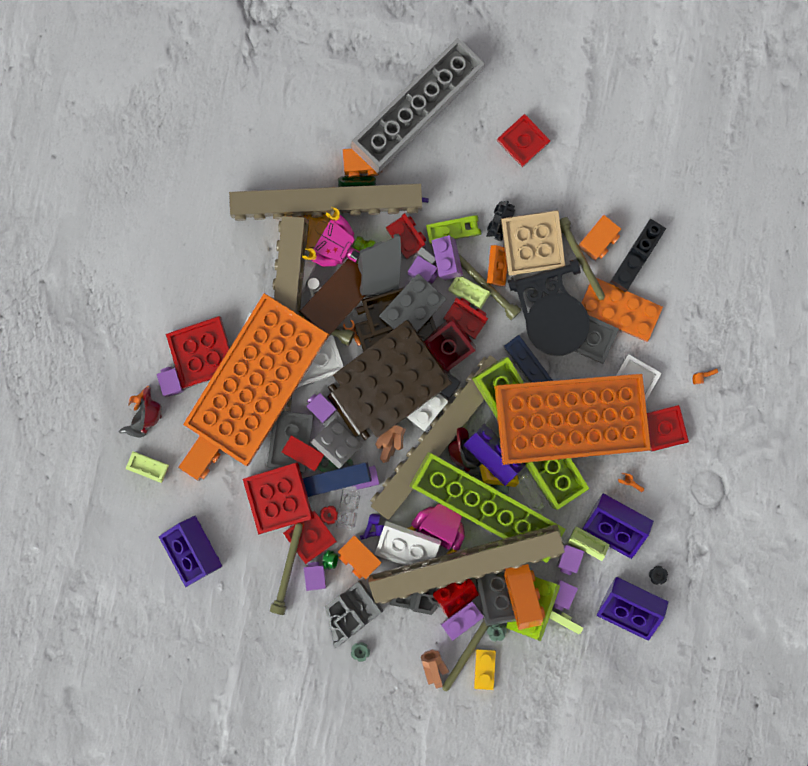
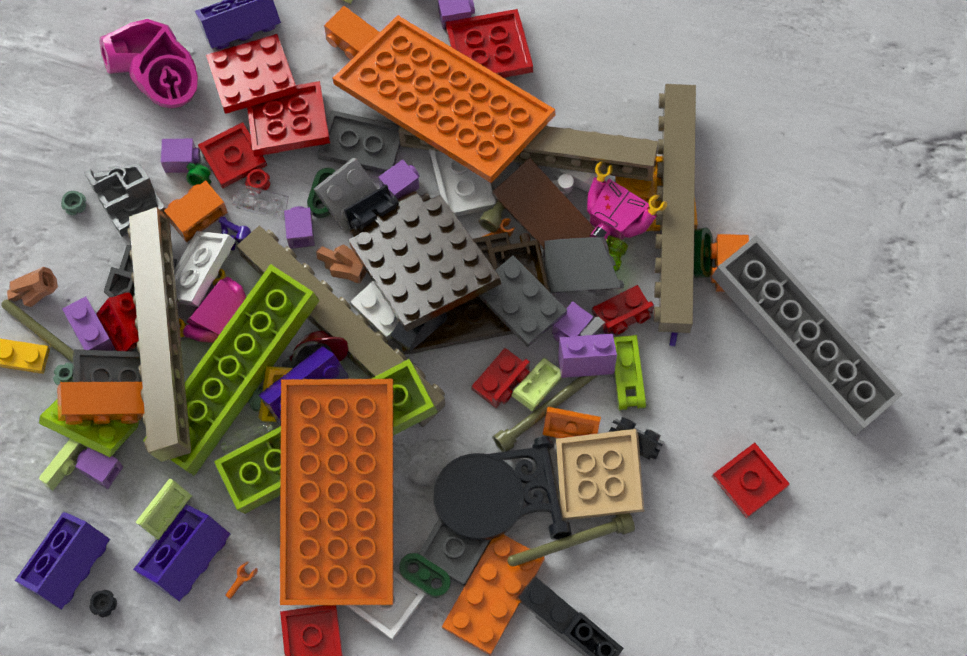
camera: 100 degrees right, 15 degrees down
(240, 532) = (251, 73): none -> plate
(240, 606) = (154, 60): none -> dark pink piece
(278, 606) = (150, 111): olive piece -> none
(303, 453) = (341, 150): red tile -> none
(337, 479) = (300, 187): dark blue tile -> none
(355, 431) = (362, 212): none -> black hinge
(450, 344) = (465, 346): dark red slope -> none
(526, 360) = (429, 456): dark blue tile -> none
(570, 560) = (144, 479): medium lavender brick -> none
(599, 238) = (599, 572): orange brick -> none
(617, 355) = (425, 575): none -> dark green plate

